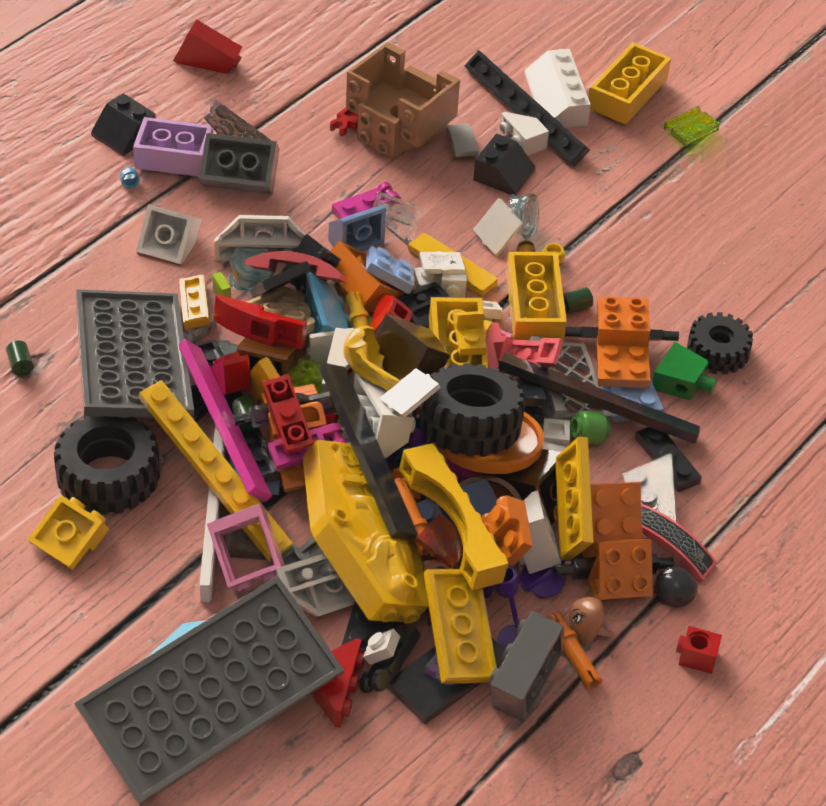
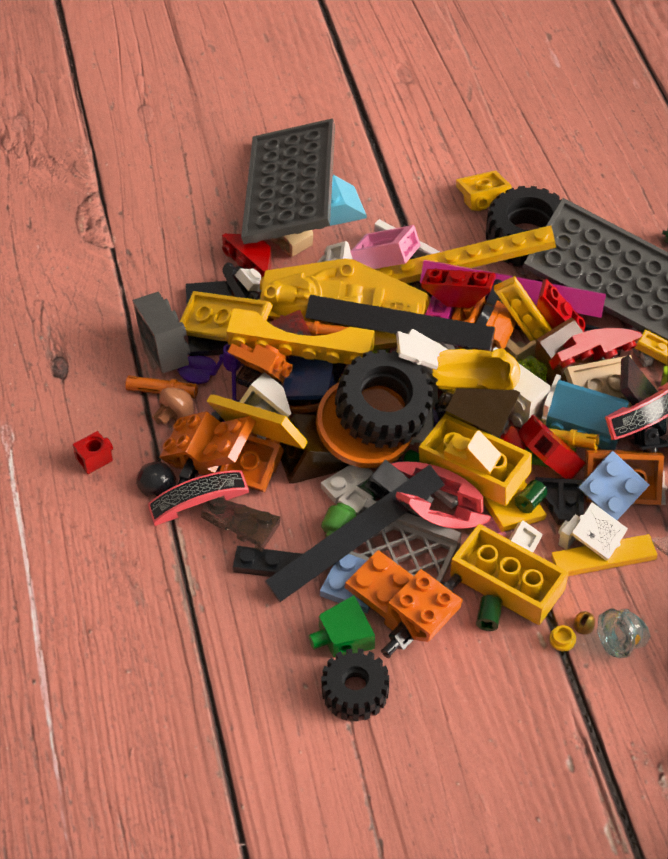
camera: 130 degrees right, 5 degrees up
(498, 227) = (619, 603): white piece -> none

